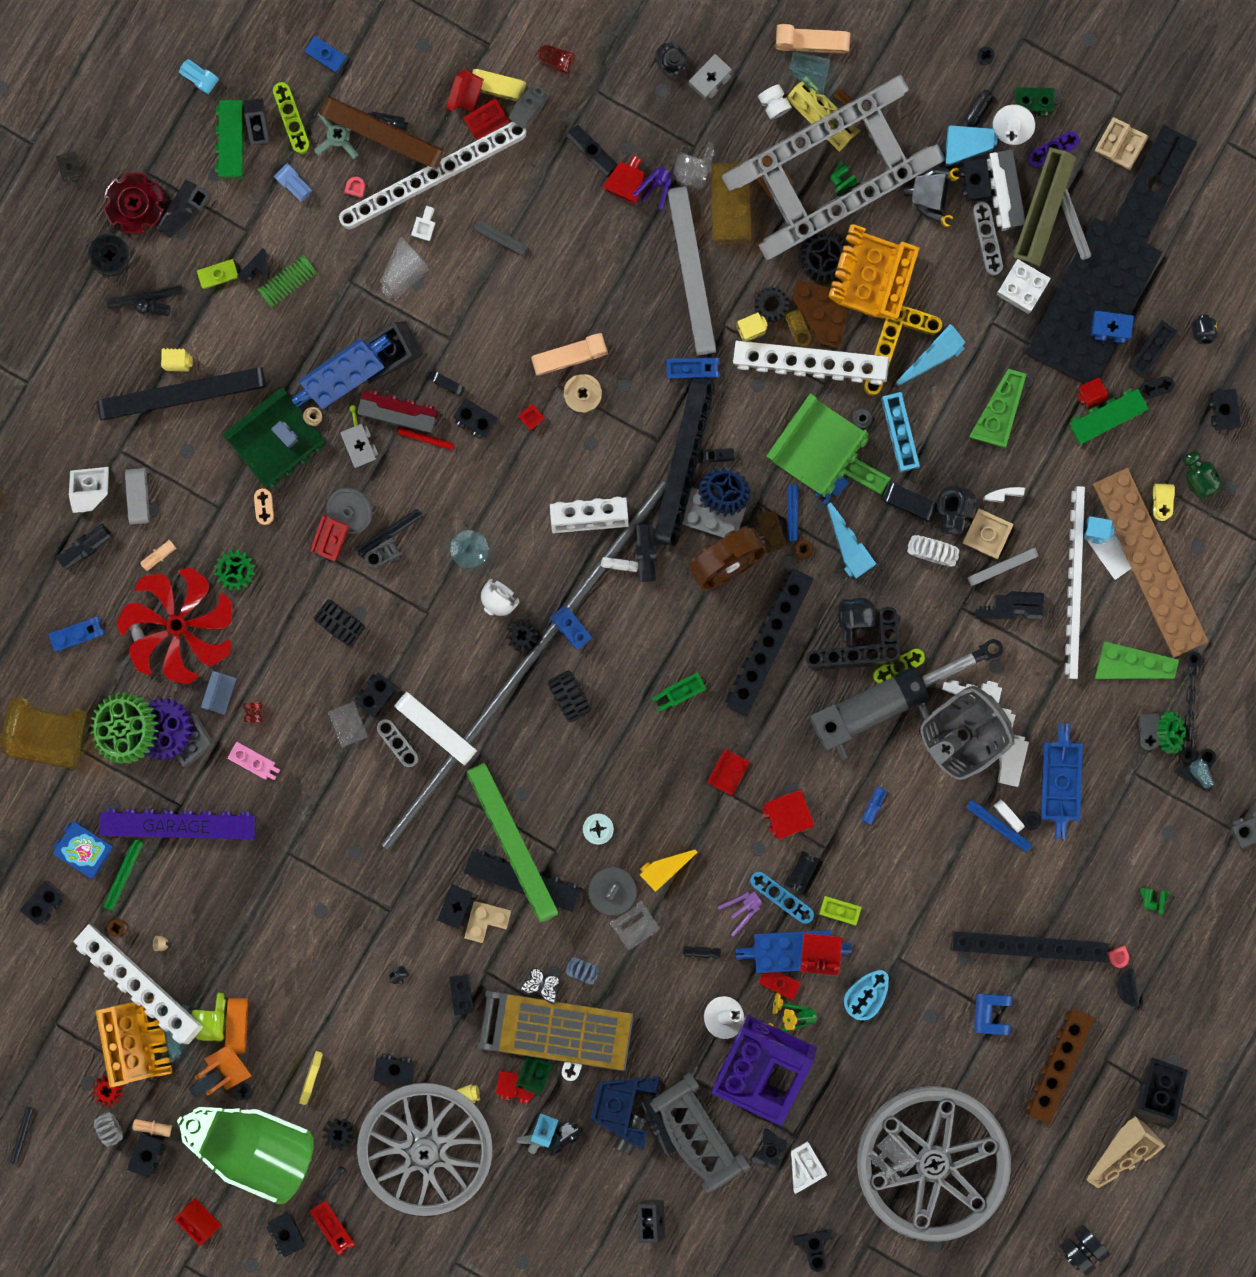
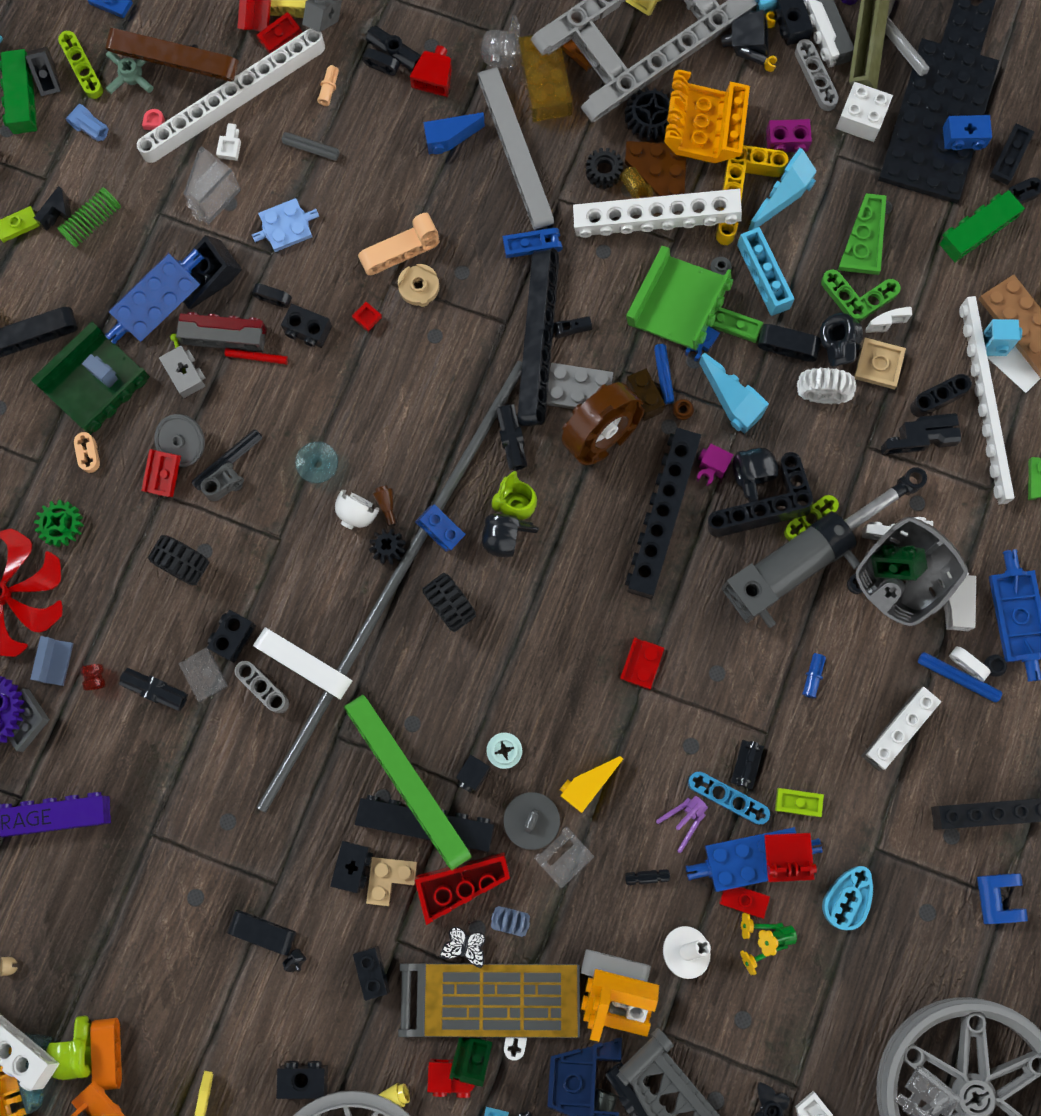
camera: 10 degrees left, 10 degrees down
(252, 761) = (98, 733): bright pink hinge -> none
(304, 730) = (153, 689): none -> black piece
(316, 413) = (130, 350): tan plate -> none
(374, 948) = (261, 932): none -> black beam
(467, 314) = (285, 225): none -> light blue plate
(524, 177) = (328, 85): none -> light nougat axle
(525, 592) = (384, 499): none -> reddish brown cone
(533, 937) = (448, 889): none -> red wedge
(568, 846) = (473, 774): none -> black brick
(578, 162) = (381, 61): none -> black beam
(581, 522) = (443, 406): white brick -> none
(619, 564) = (484, 453): white axle -> none
(623, 641) = (501, 533): none -> black piece
(628, 247) = (449, 132): none -> blue slope
(640, 612) = (515, 498): none -> lime piece
(660, 177) = (469, 63): dark purple plant -> none
(660, 1049) = (618, 1003): none -> light orange brick
(663, 1022) = (613, 964): none -> light grey beam
(681, 691) = (574, 581): green hinge -> none
(712, 491) = (587, 359): dark blue gear -> none
(752, 327) = (587, 187): light yellow brick -> none
(756, 1053) = (735, 989): dark purple piece -> none
(787, 815) = (720, 699): red brick -> none
(822, 602) = (713, 462): none -> magenta brick
(842, 186) = (653, 33): green piece -> none
(938, 862) = (901, 729): none -> white piece
(948, 294) = (787, 131): none -> magenta brick
(960, 723) = (899, 562): none -> dark green brick
(985, 472) = (860, 303): none -> bright green beam
(1003, 566) = (903, 394): light grey beam -> none
(1044, 570) = (947, 388): none -> black beam
(1092, 394) = (961, 204): red brick -> none

